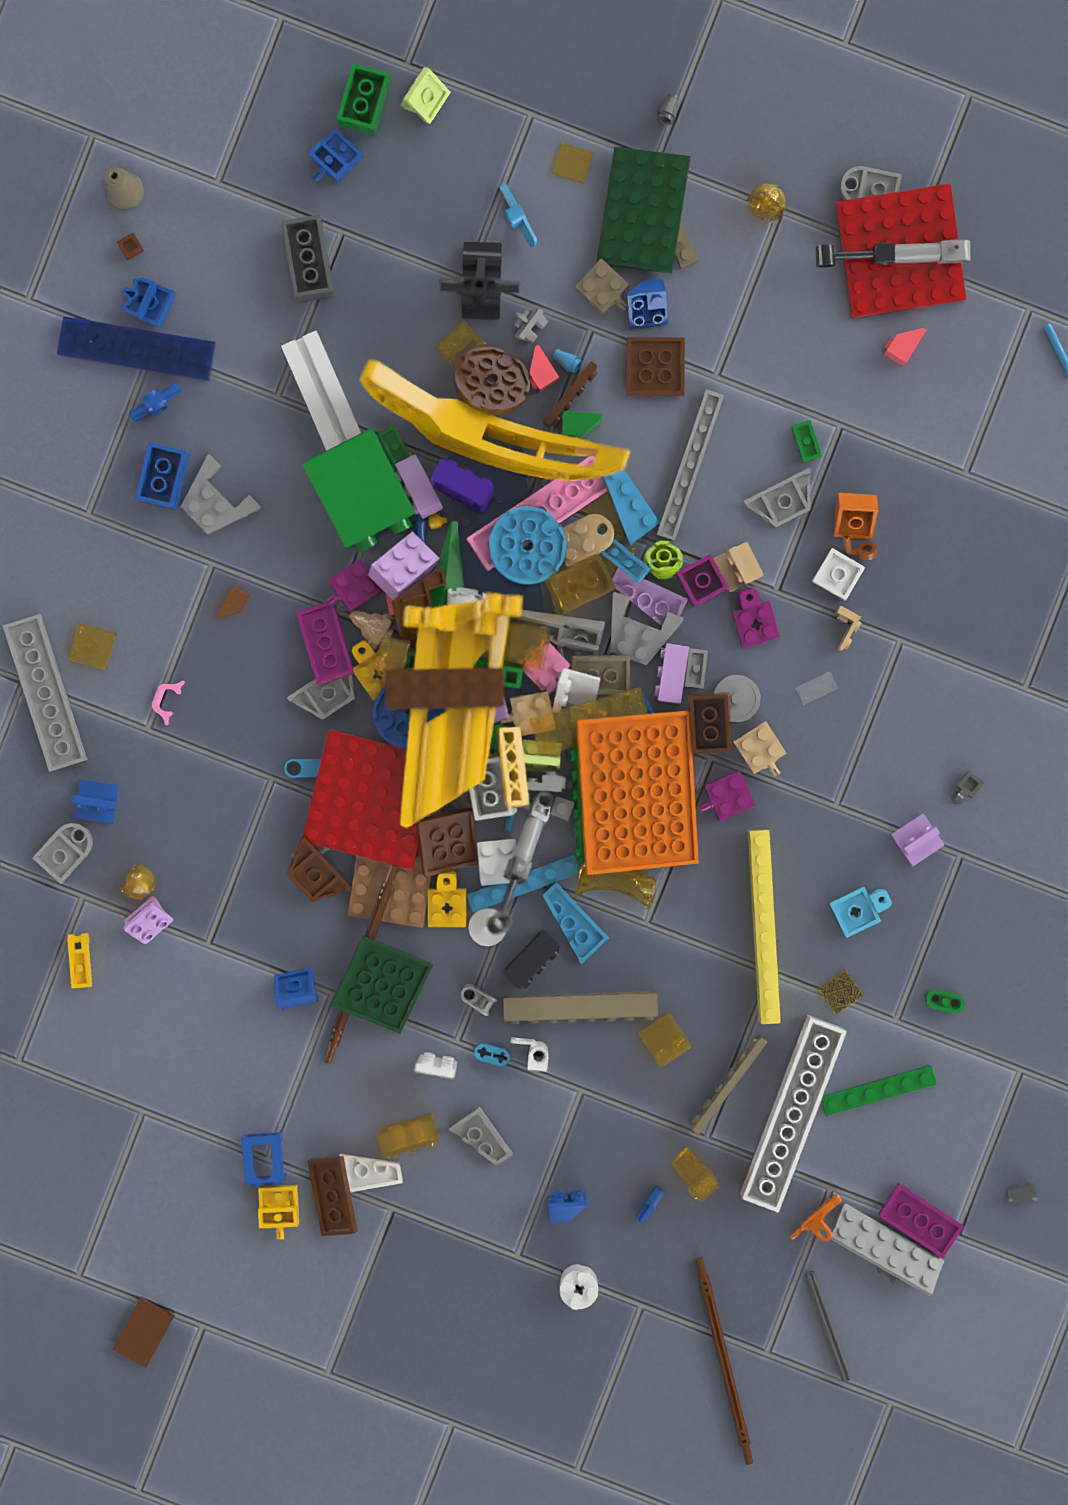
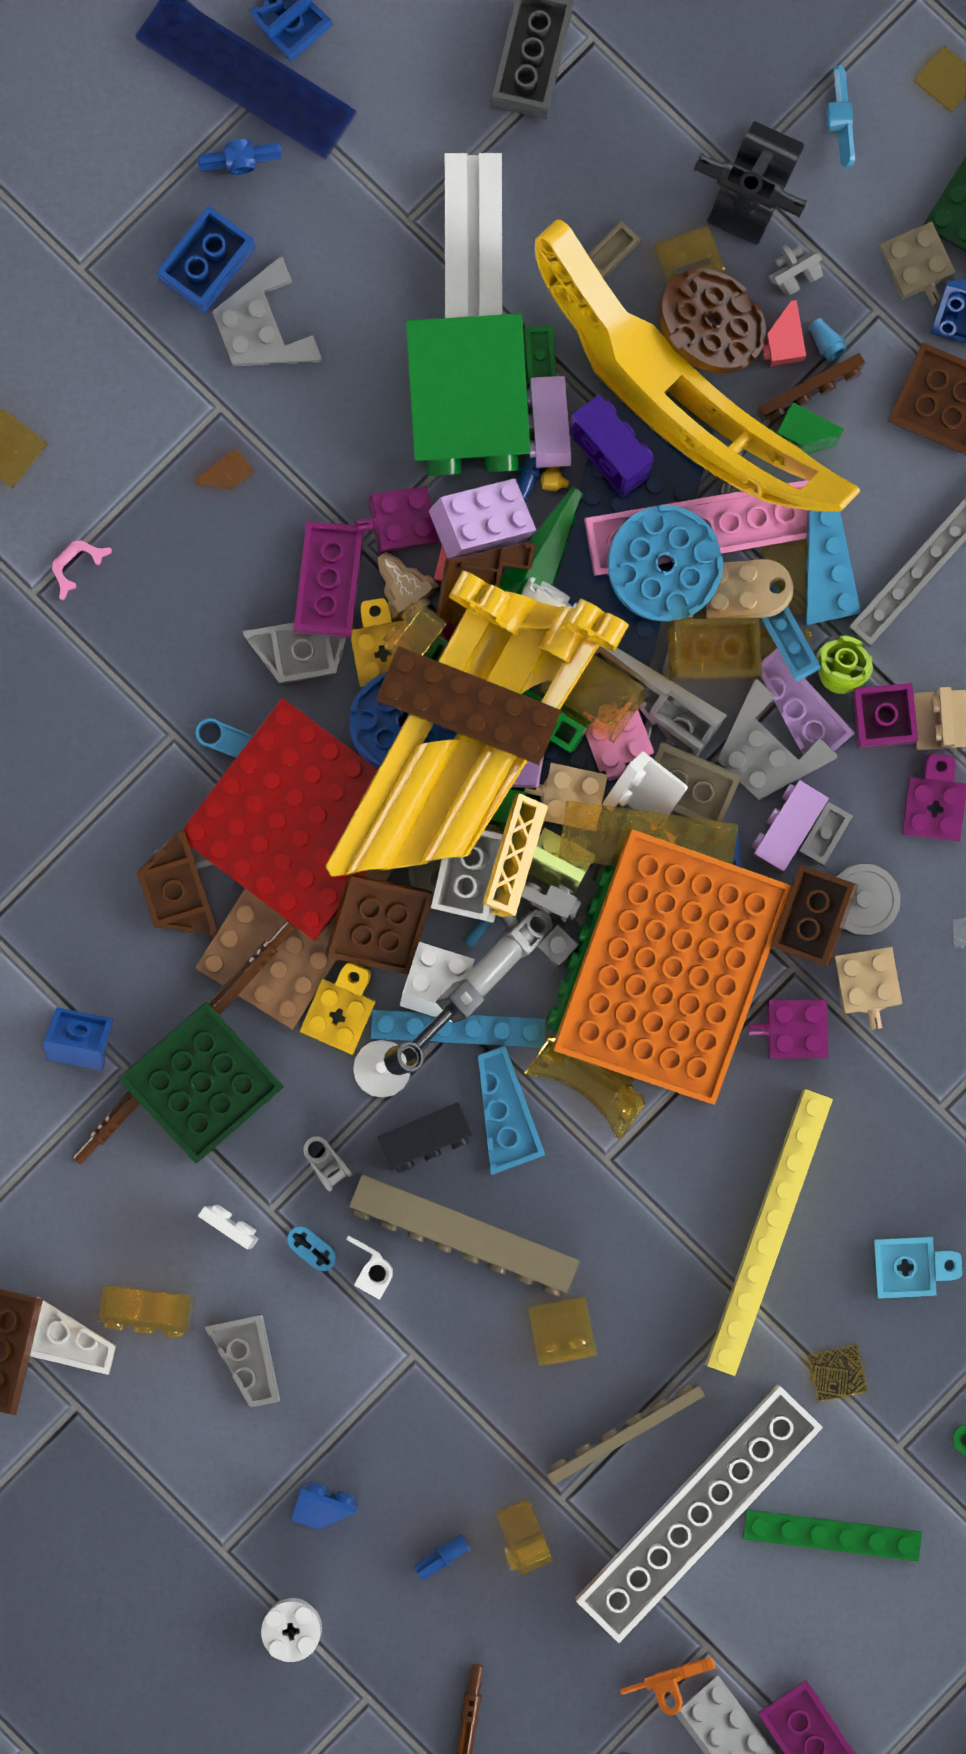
camera: 15 degrees right, 5 degrees down
(411, 361) = (614, 248): none -> dark tan tile

